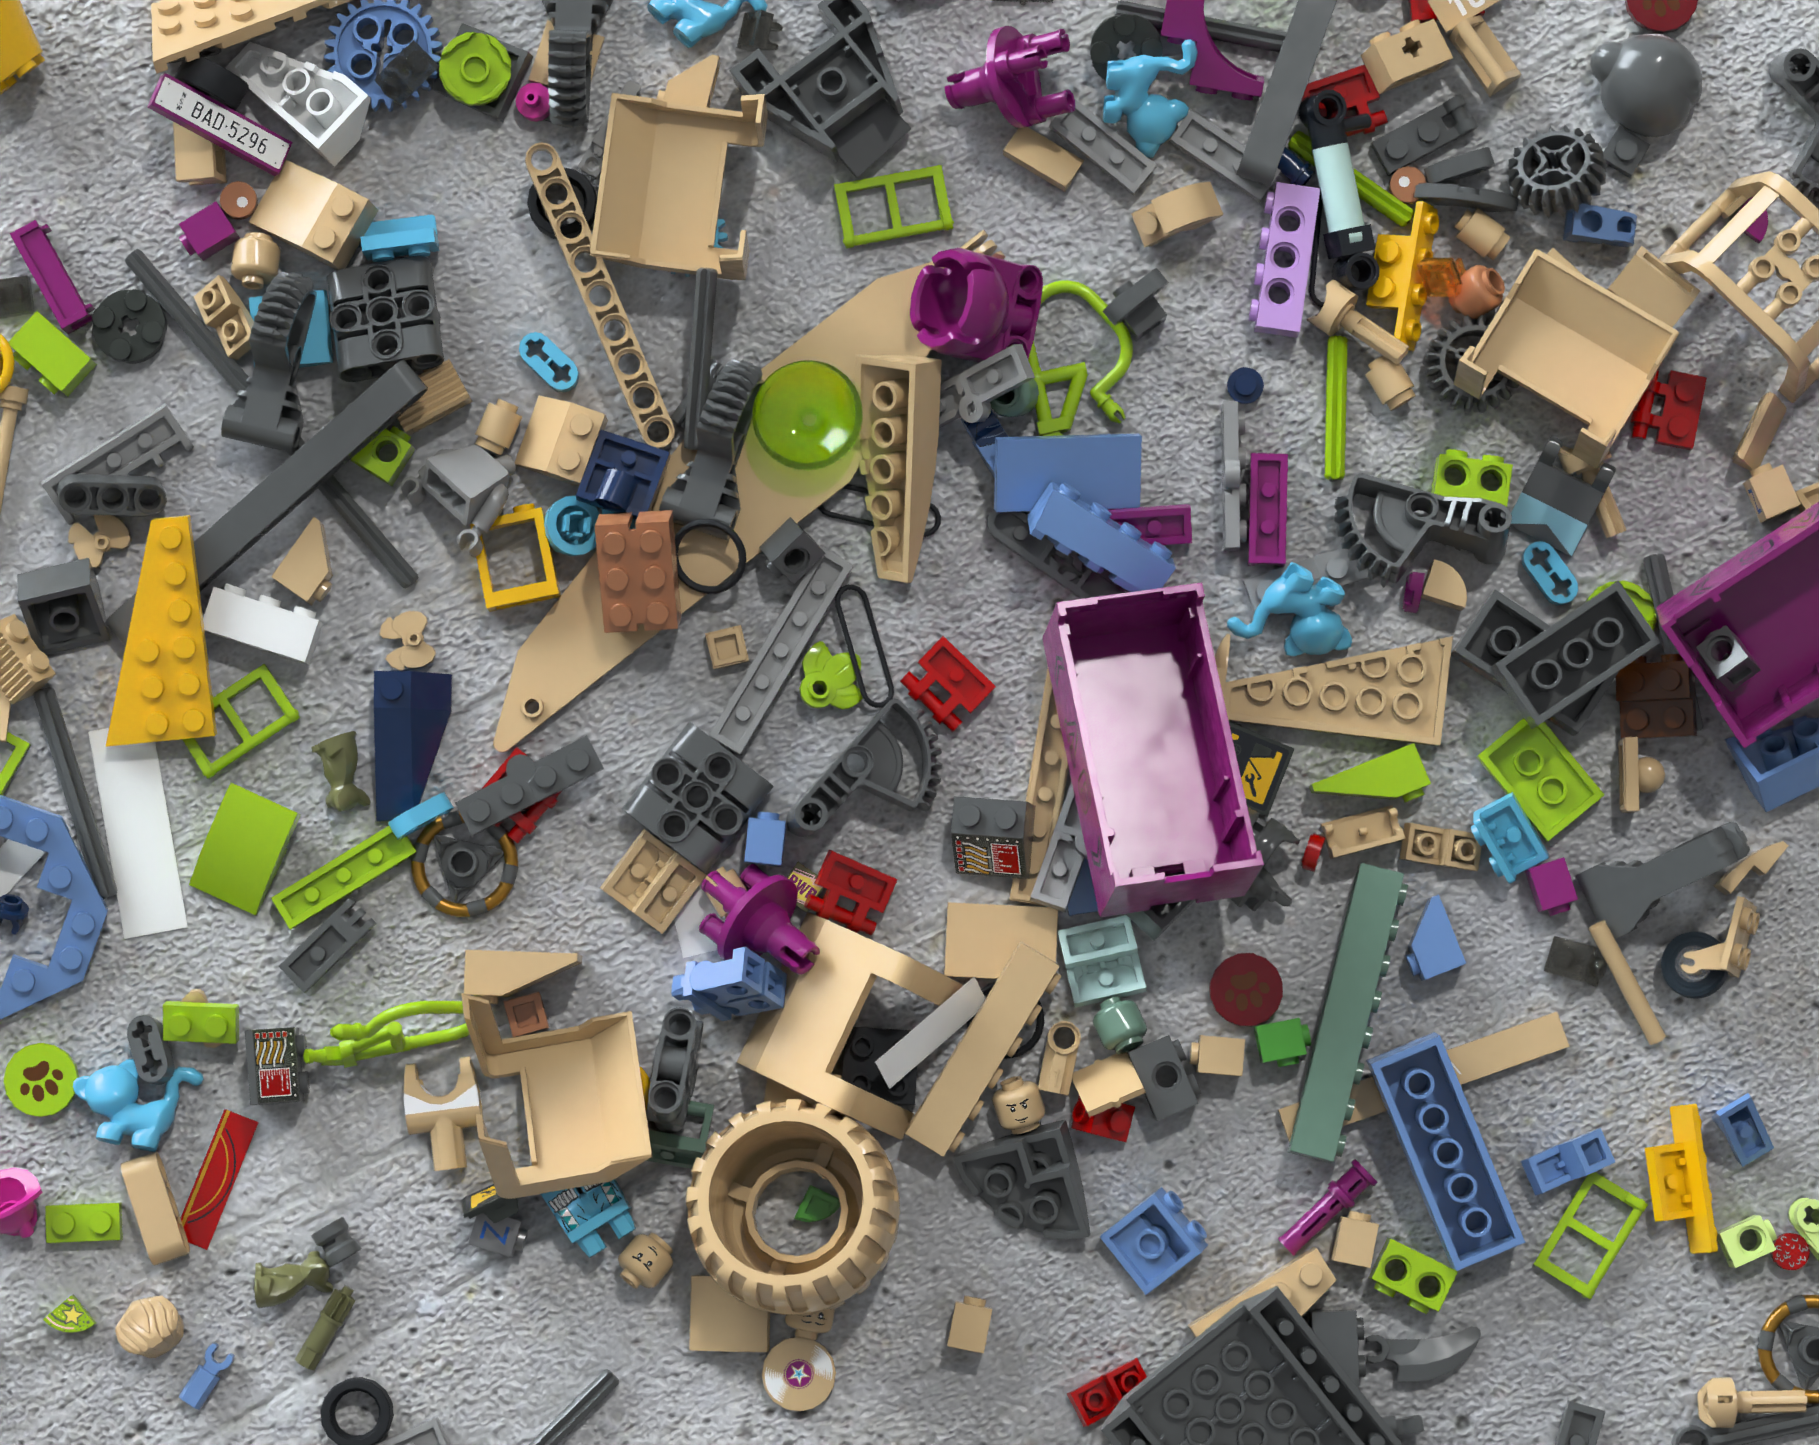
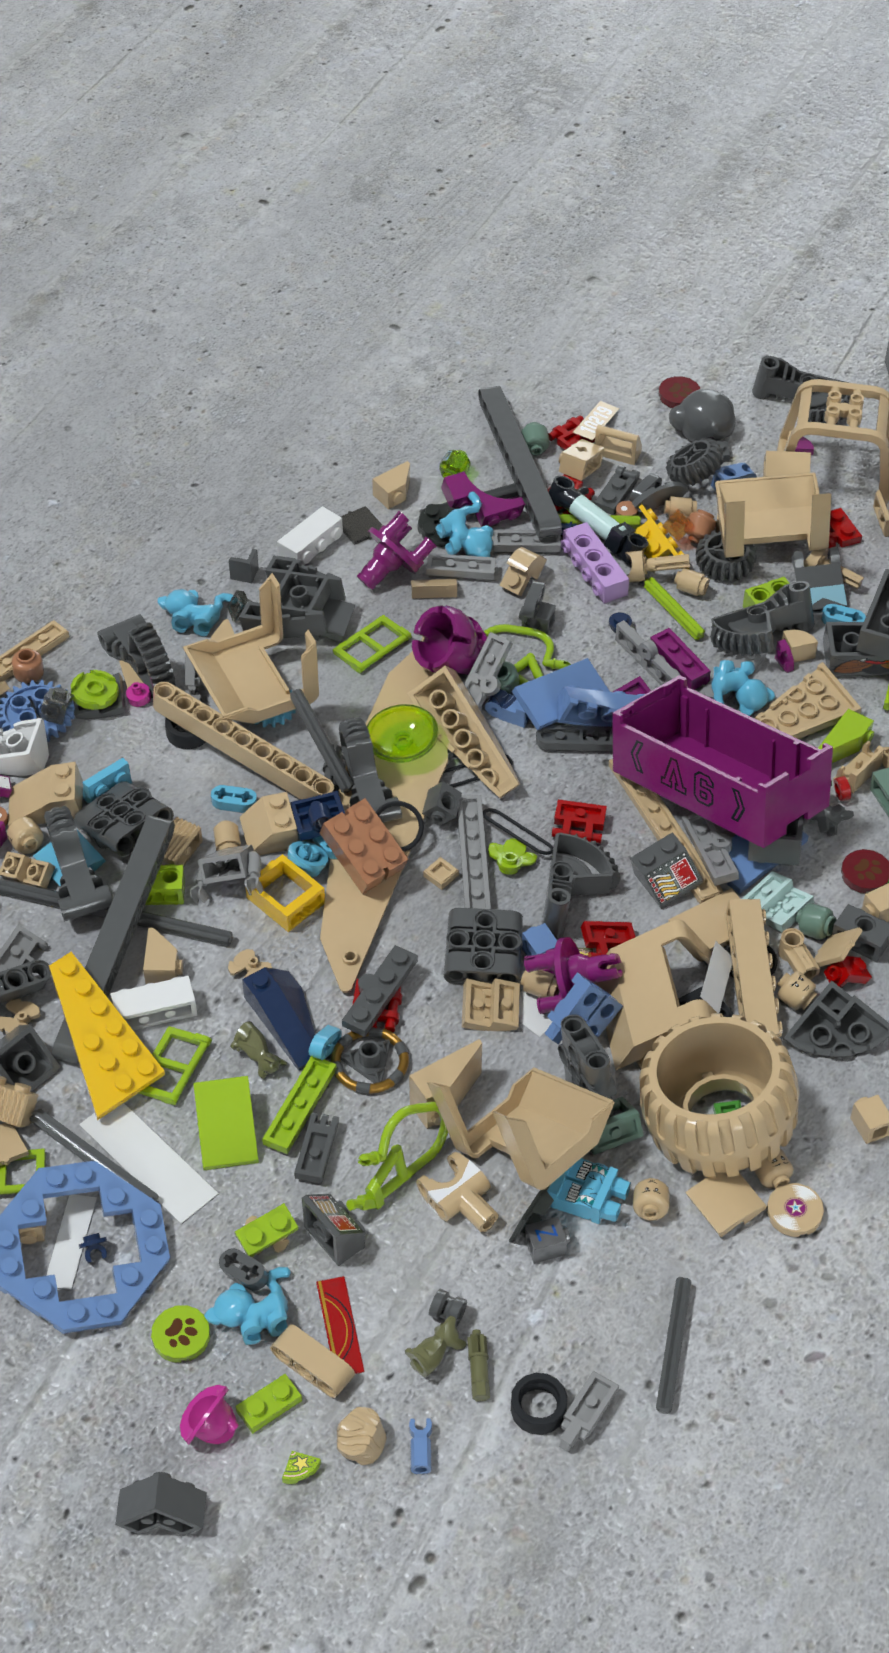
camera: 35 degrees left, 35 degrees down
(526, 1014) = (472, 1111): nougat plate -> none

